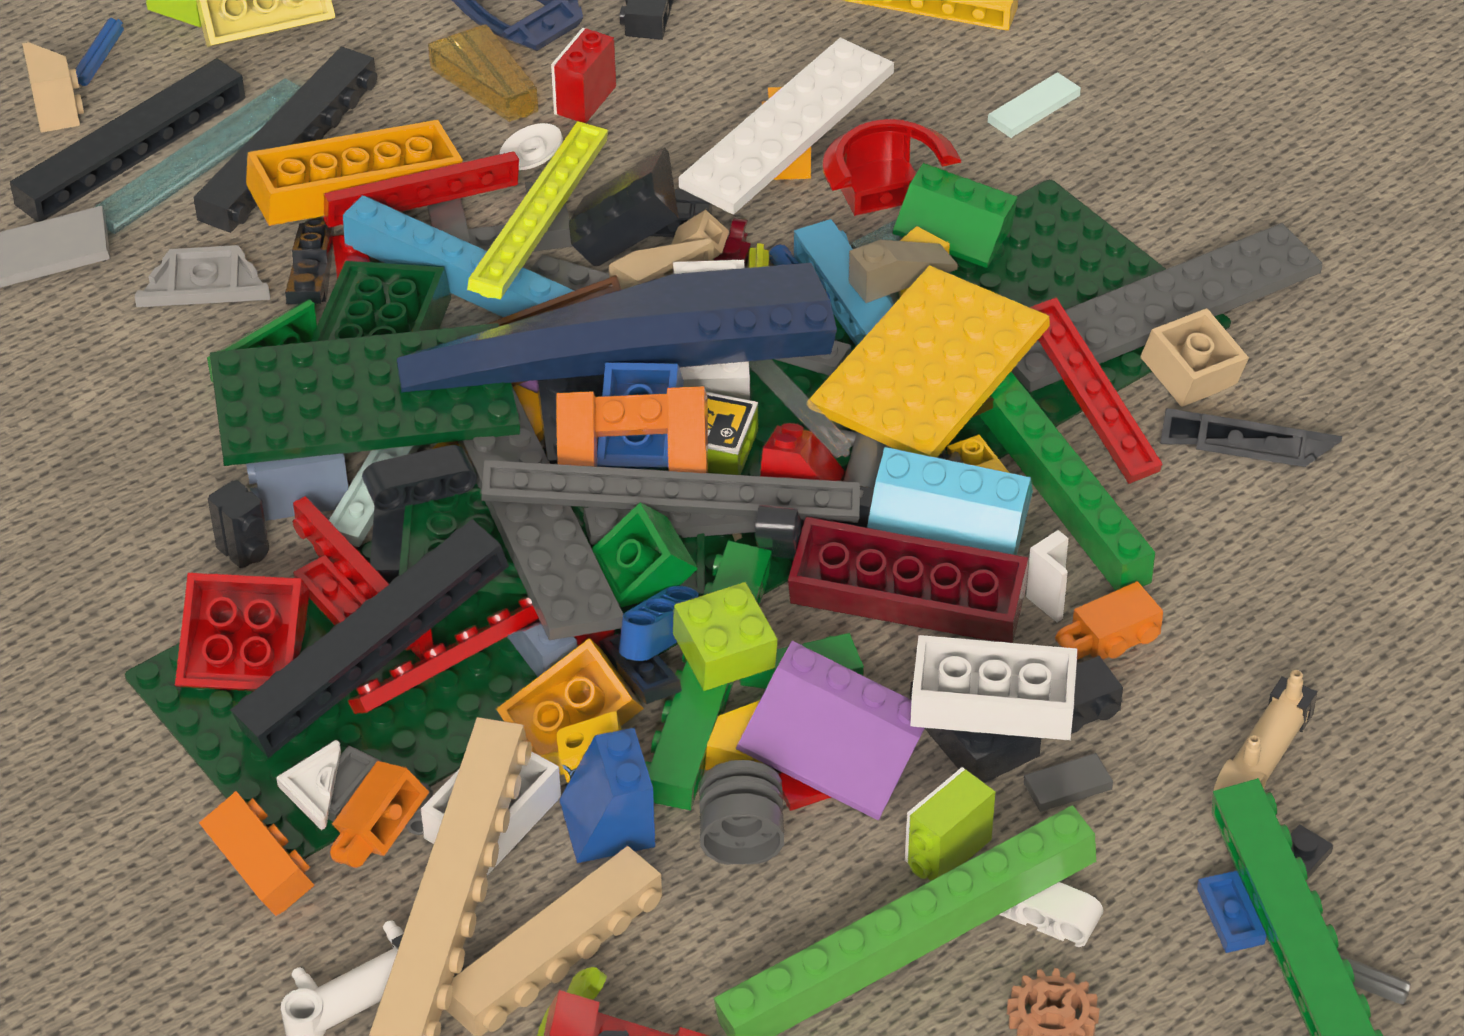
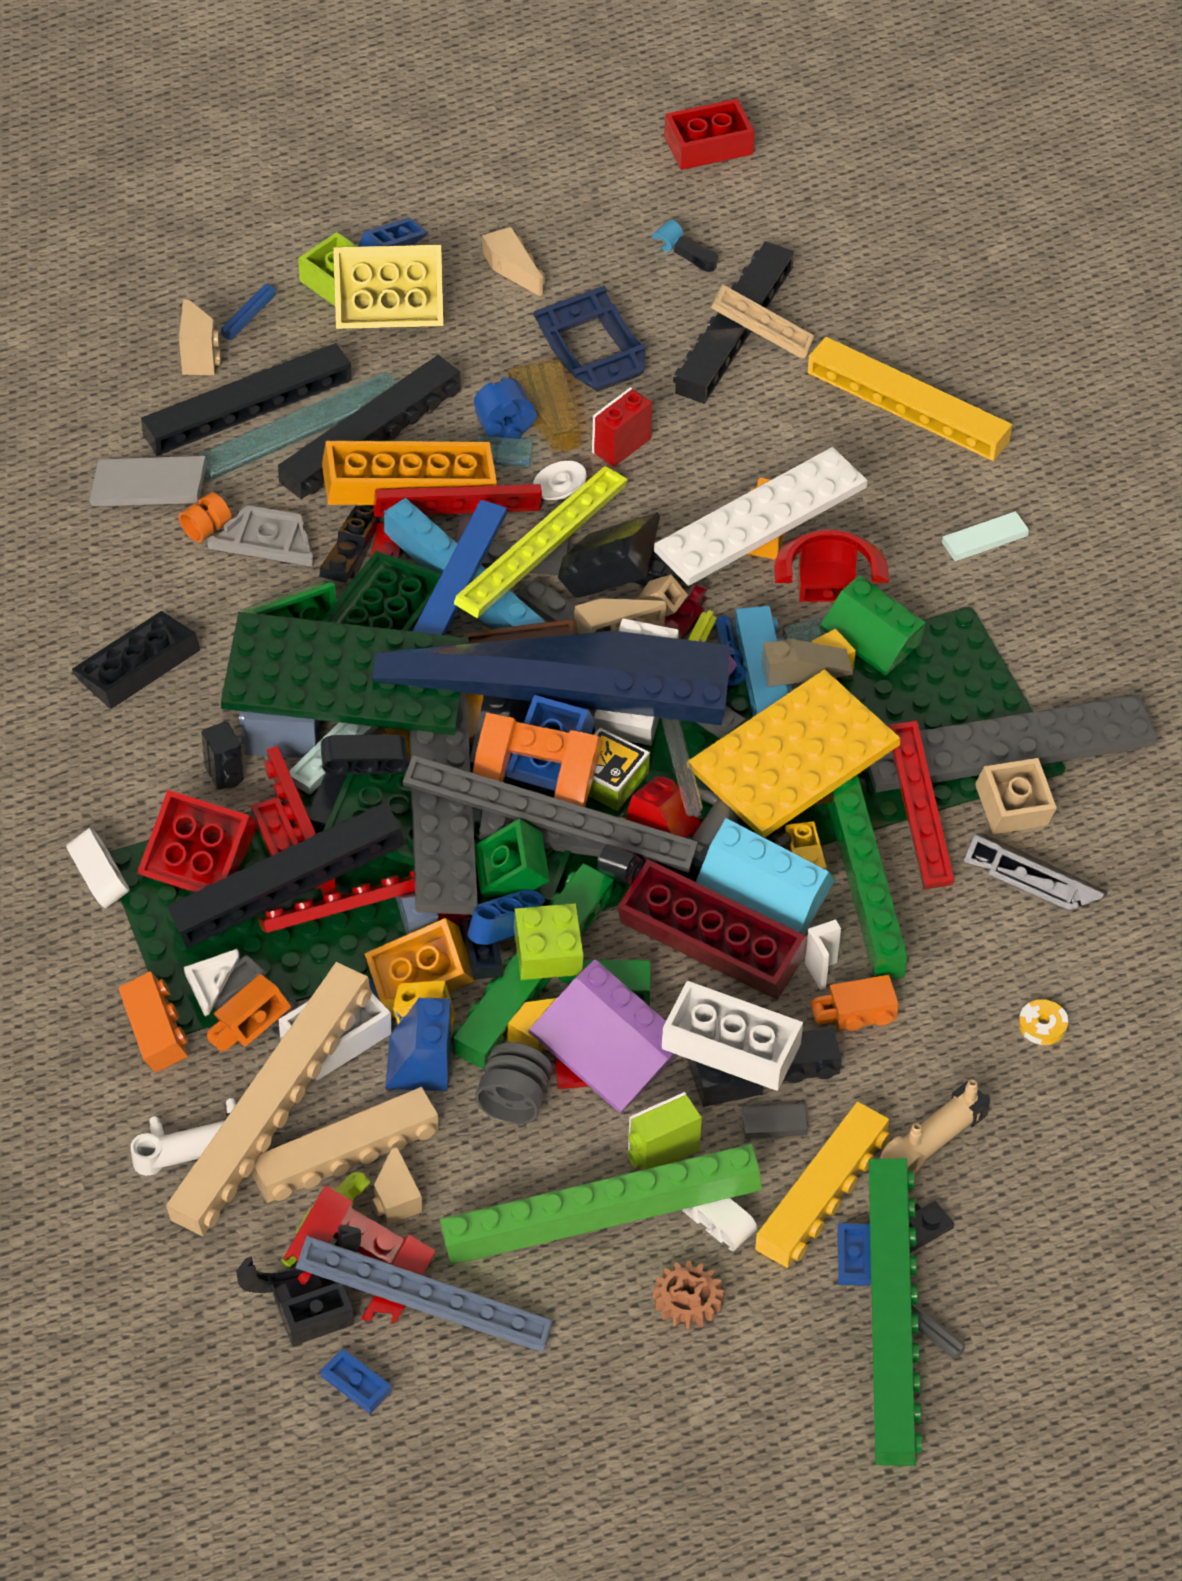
camera: 15 degrees right, 5 degrees up
(91, 445) = (137, 659): none -> black slope
(122, 272) = (206, 516): none -> orange wheel
(123, 689) = (97, 867): none -> white beam
(440, 86) = (504, 409): none -> blue brick
(459, 251) = (461, 568): none -> blue tile
(464, 129) = (509, 450): none -> clear light blue plate
(641, 980) = (396, 1191): none -> tan slope
(1159, 841) = (822, 1185): none -> yellow brick
(1328, 607) = (1043, 1033): none -> yellow piece

